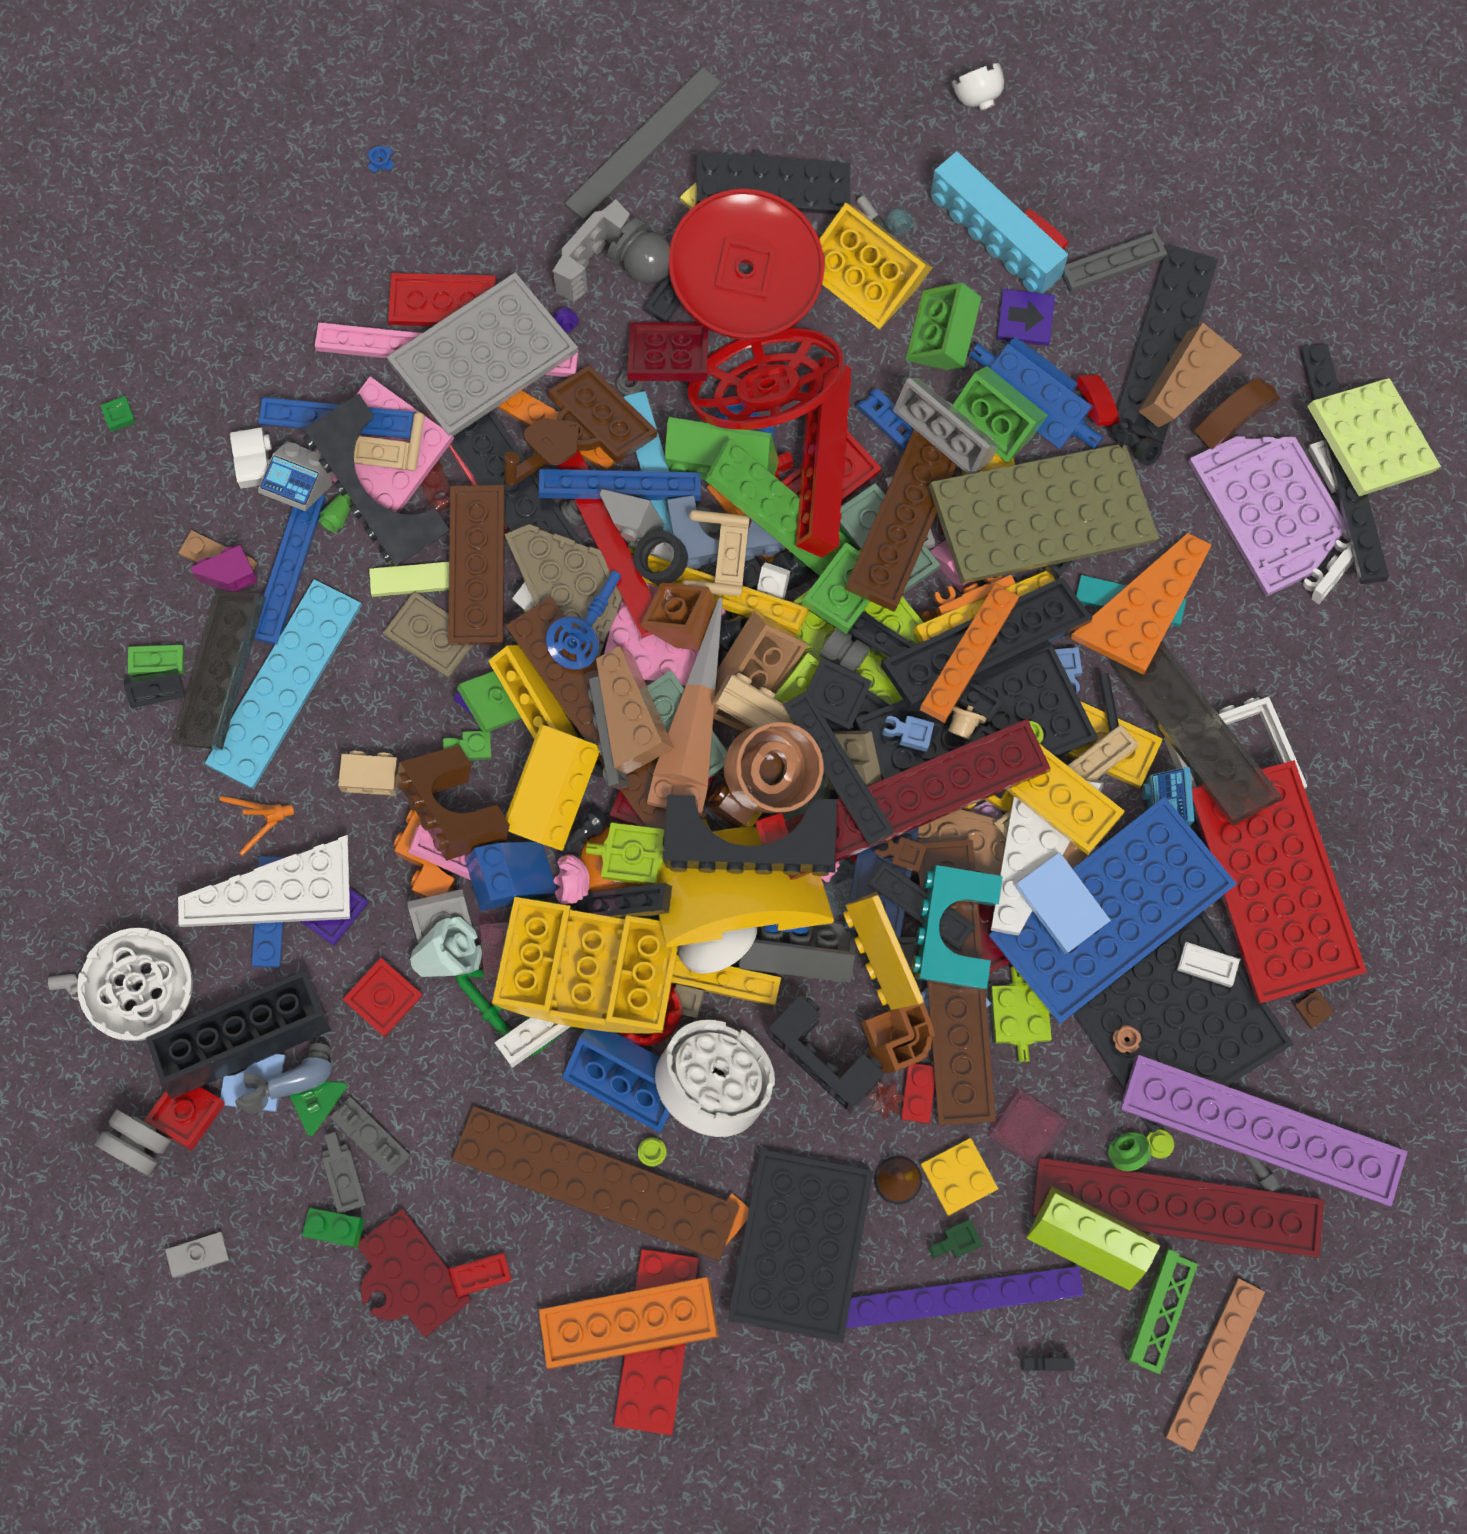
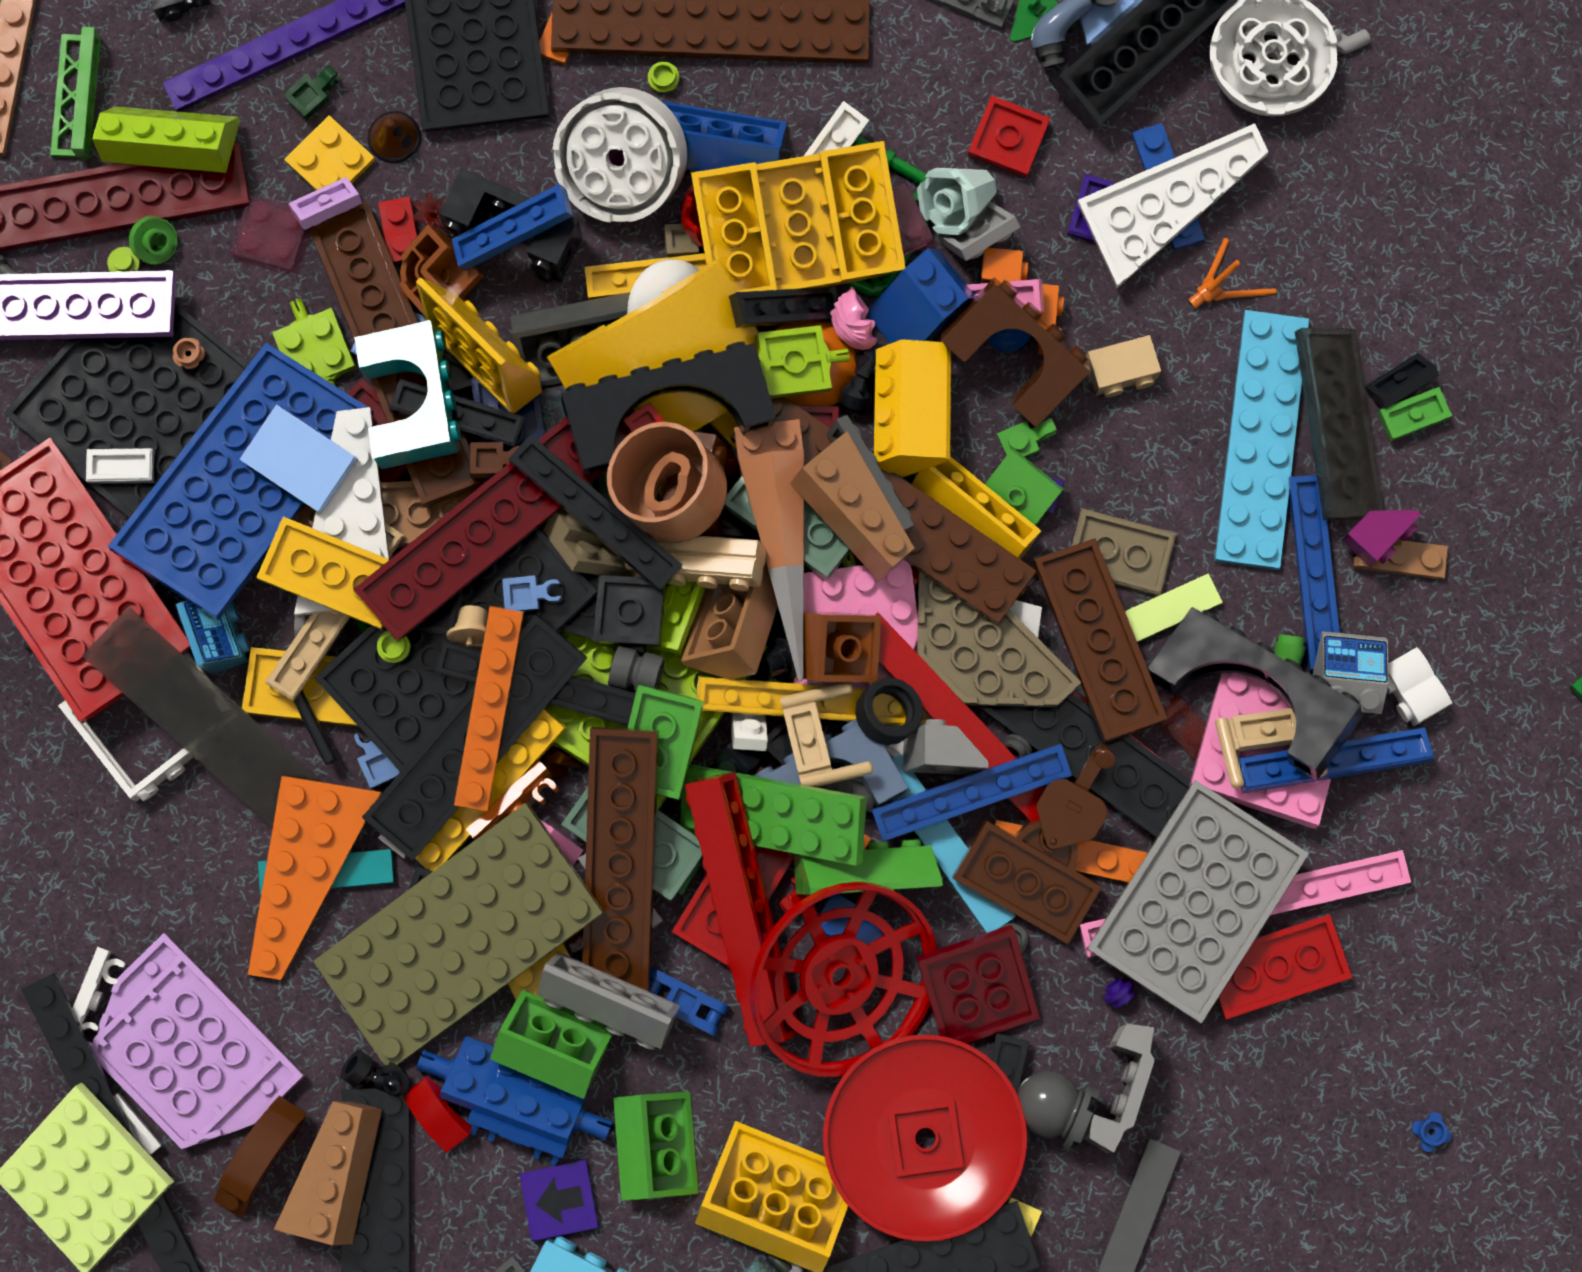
camera: 160 degrees right, 5 degrees up
(583, 633) = (947, 577): blue dish -> none
(826, 1038) = (512, 227): none -> blue plate
(975, 1129) = (325, 203): none -> lavender plate

